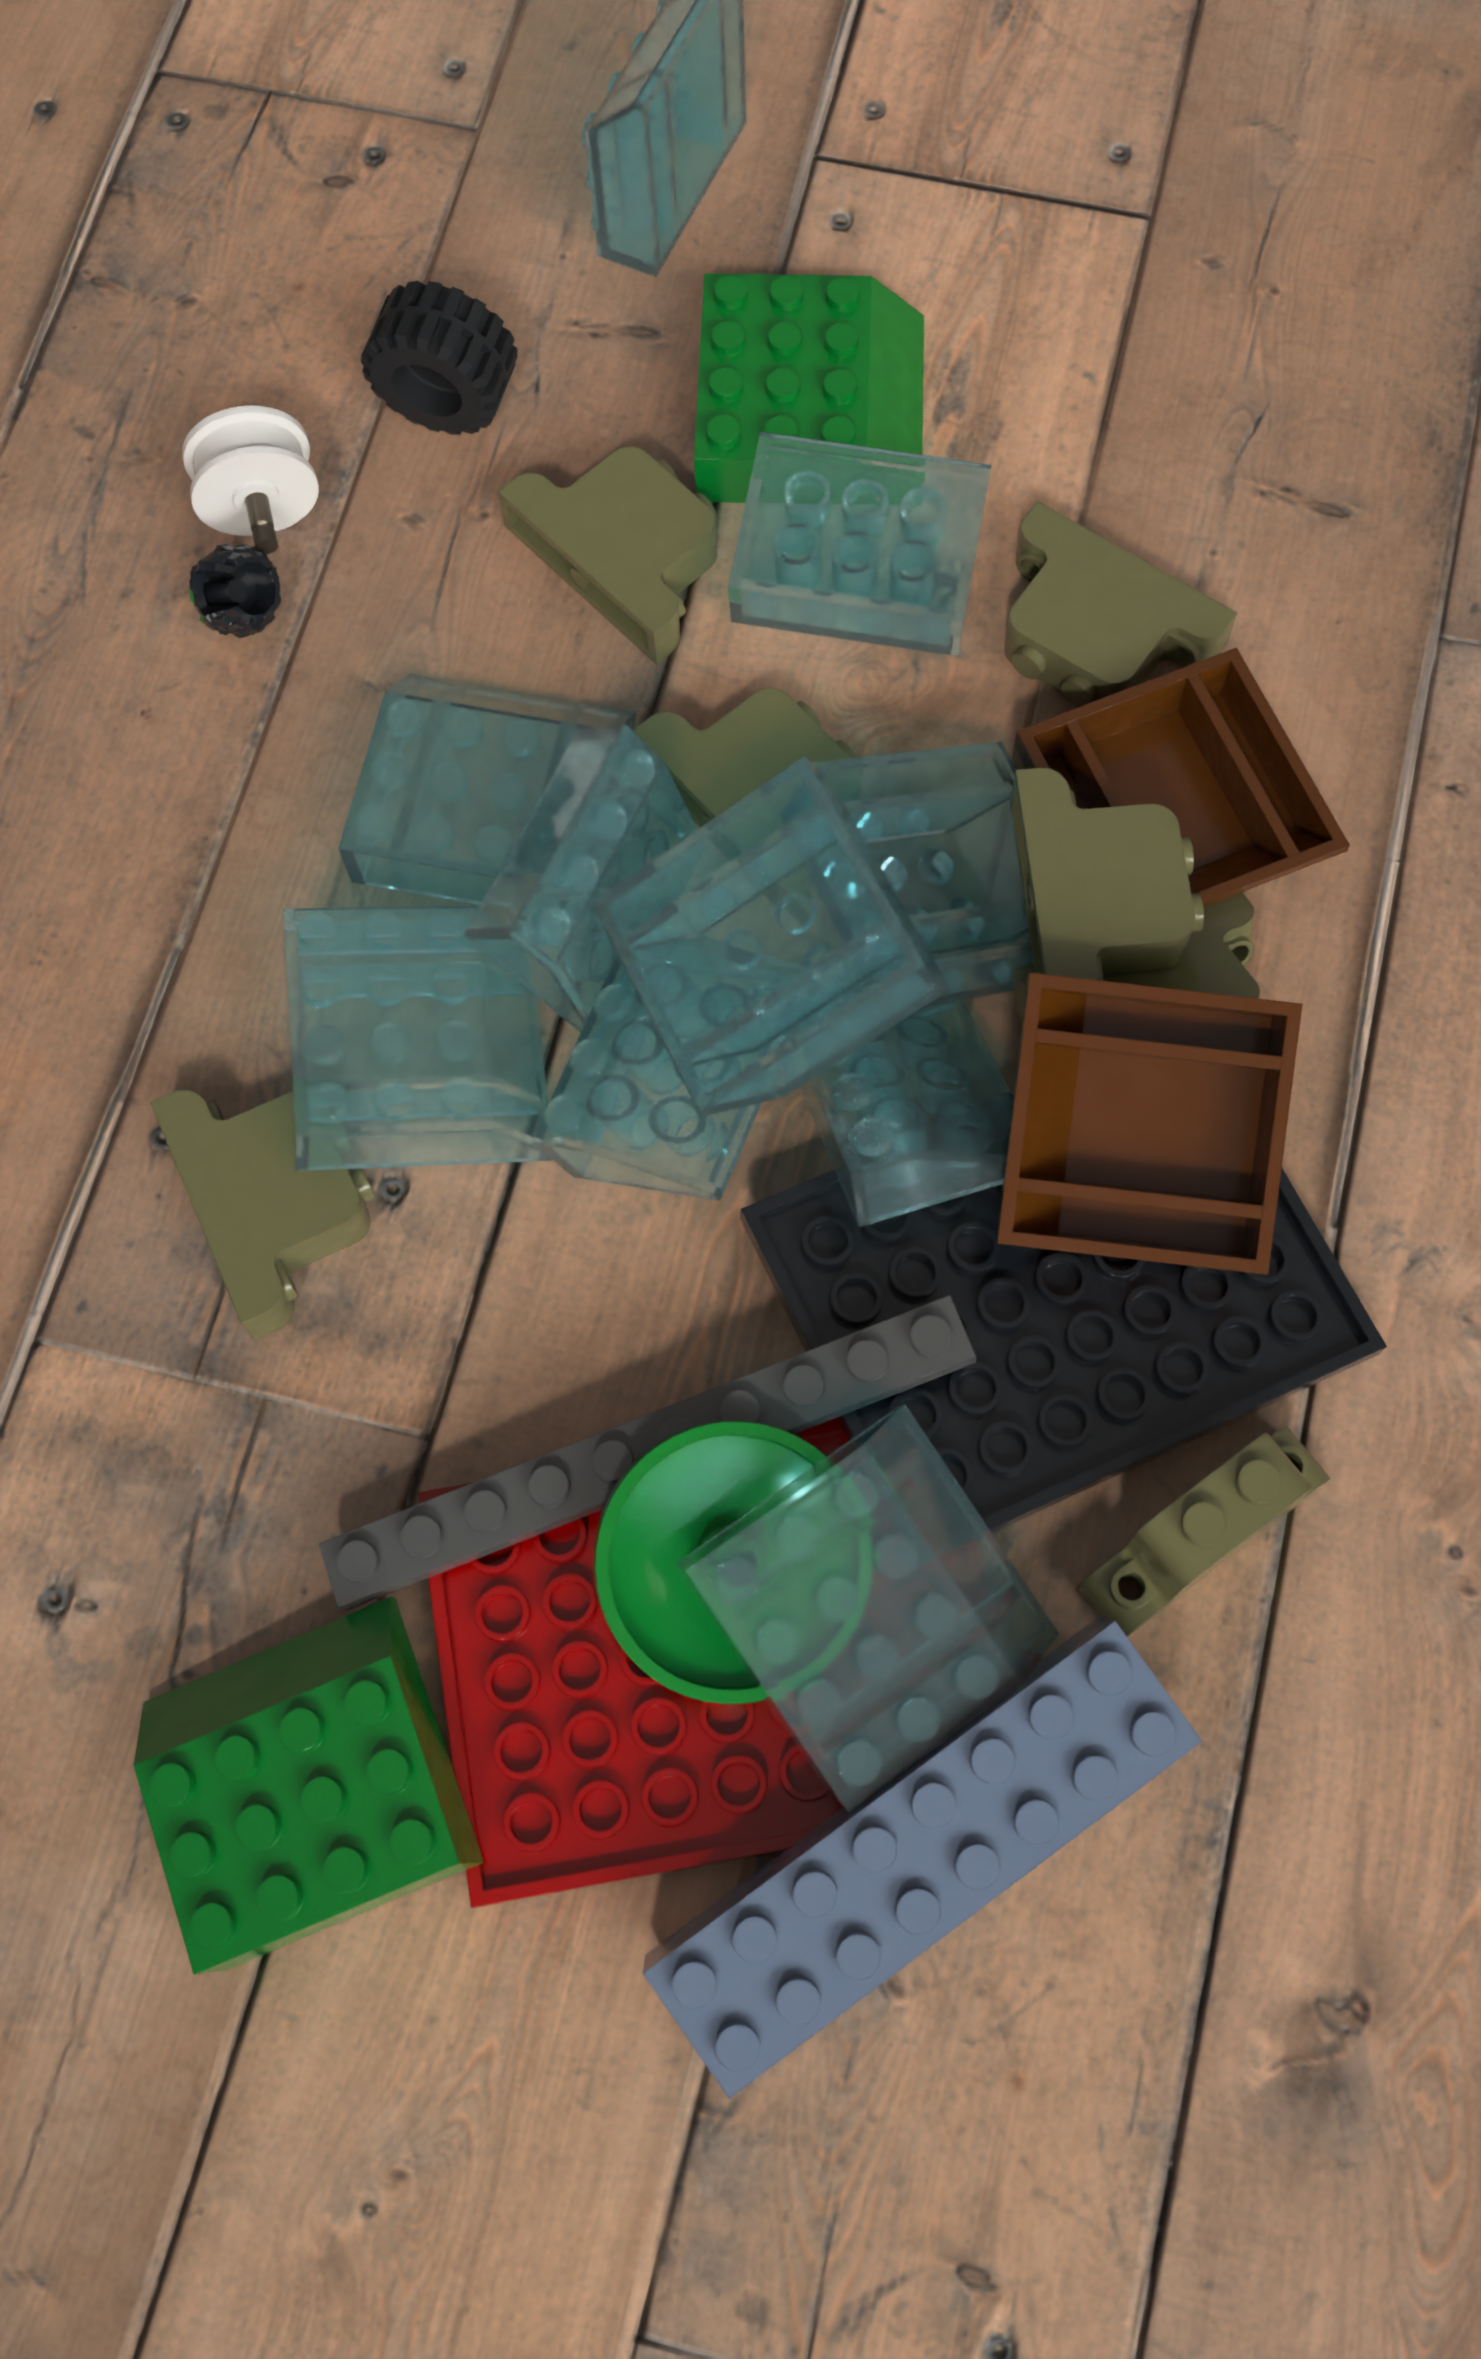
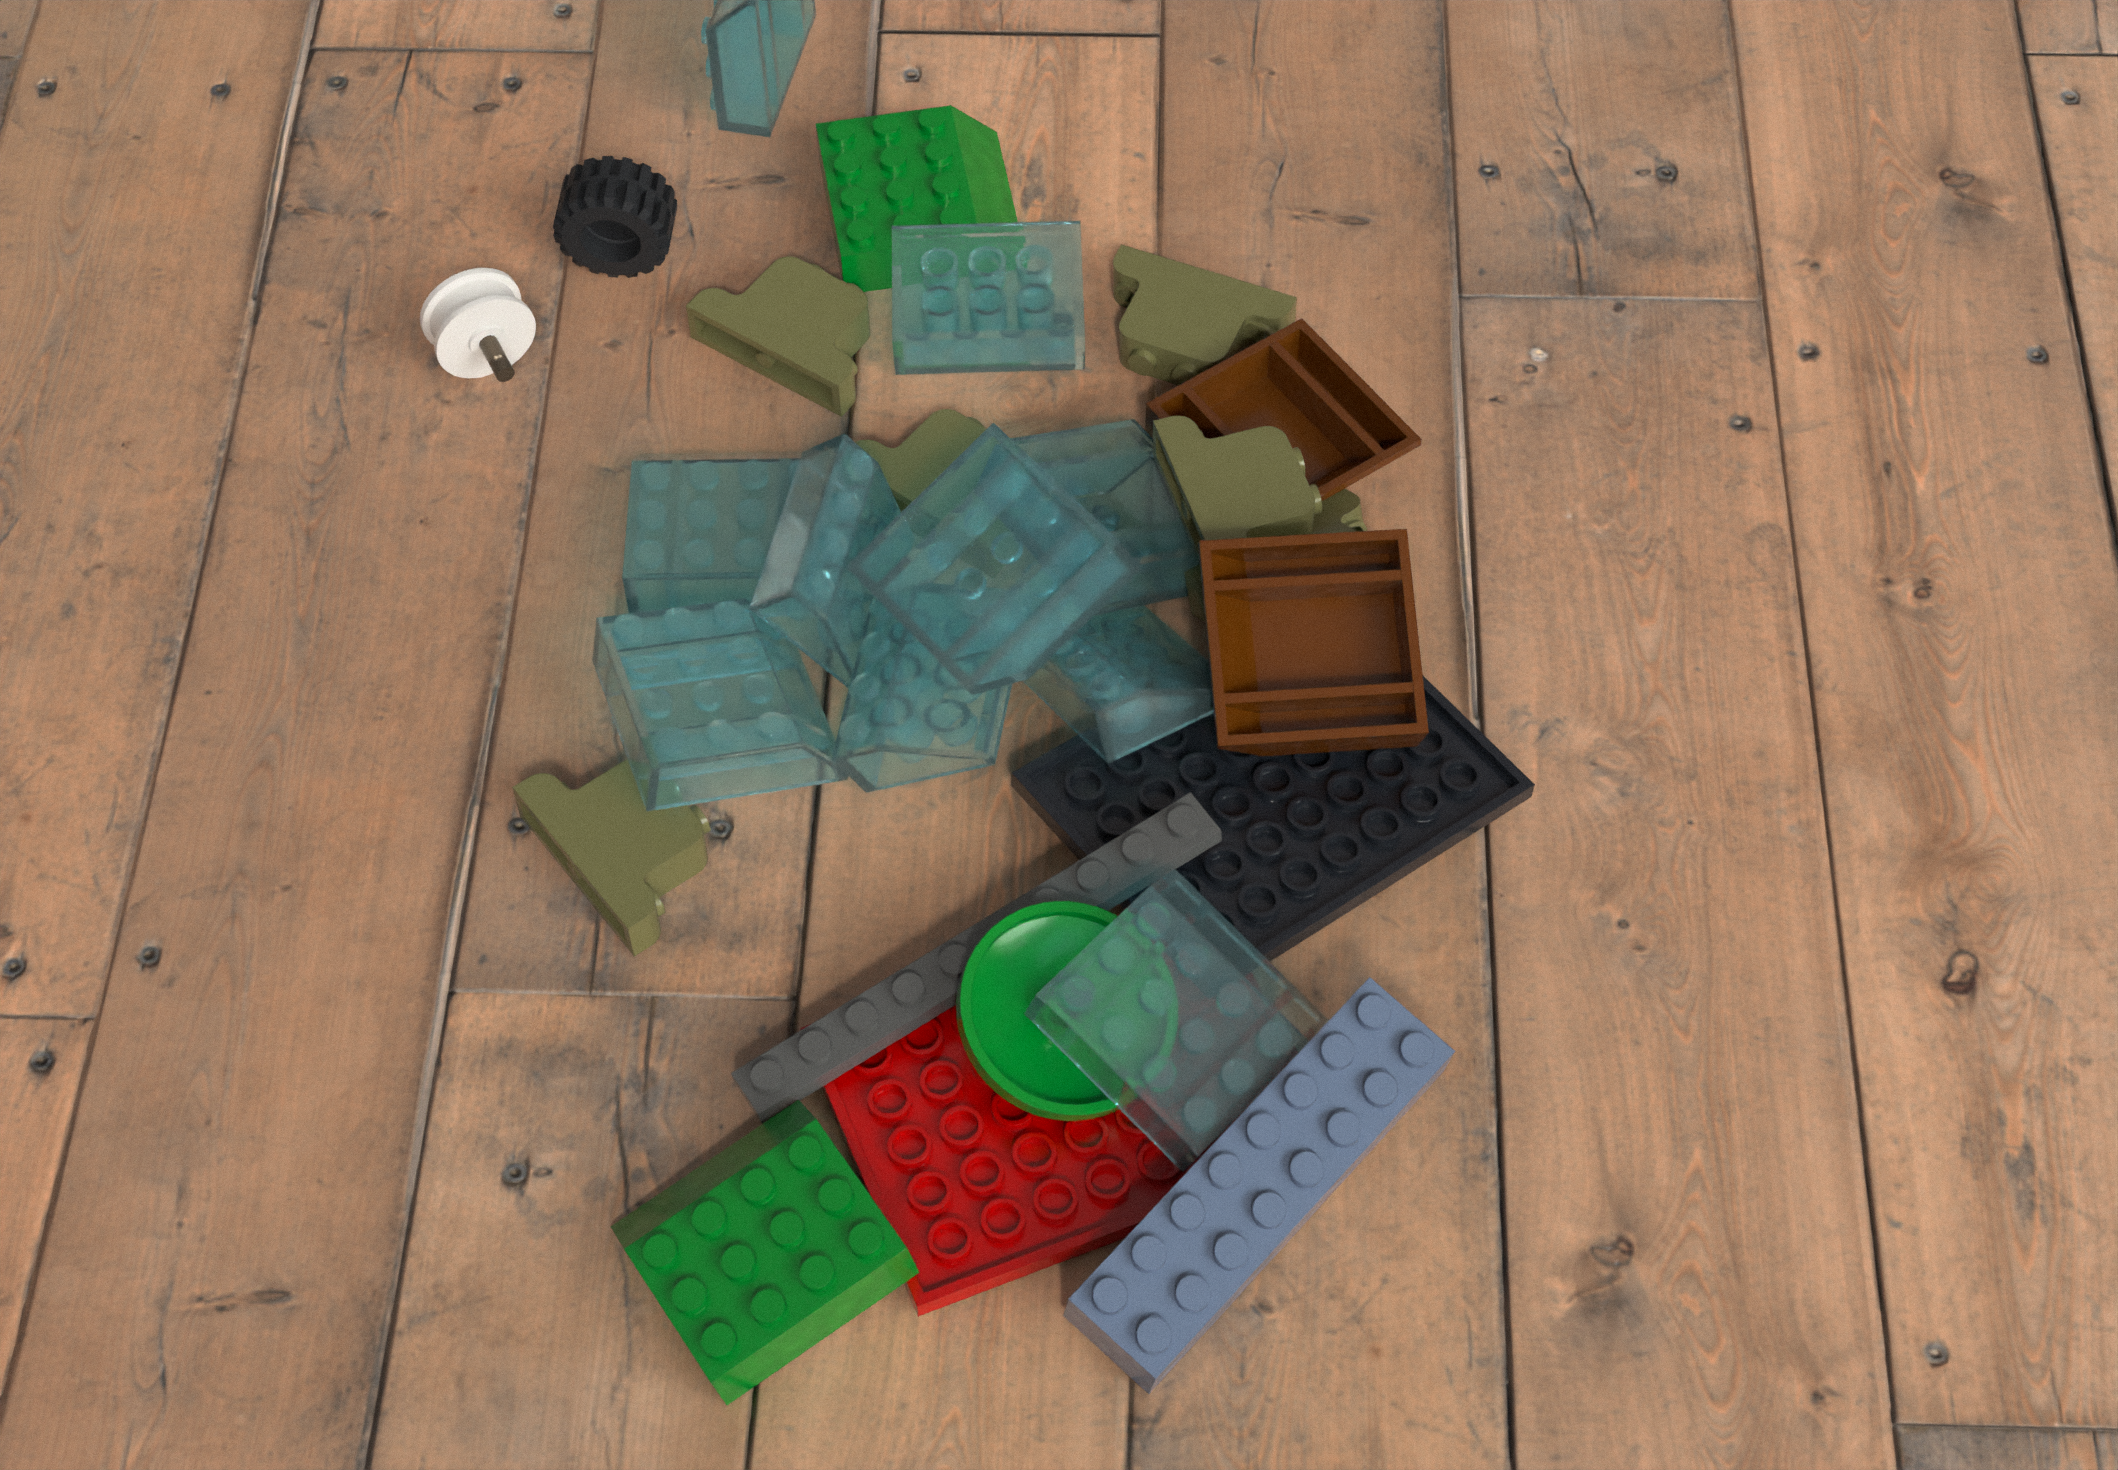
camera: 15 degrees left, 15 degrees down
(235, 590) = (485, 412): black piece -> none
(1205, 1528) = (1429, 919): olive brick -> none

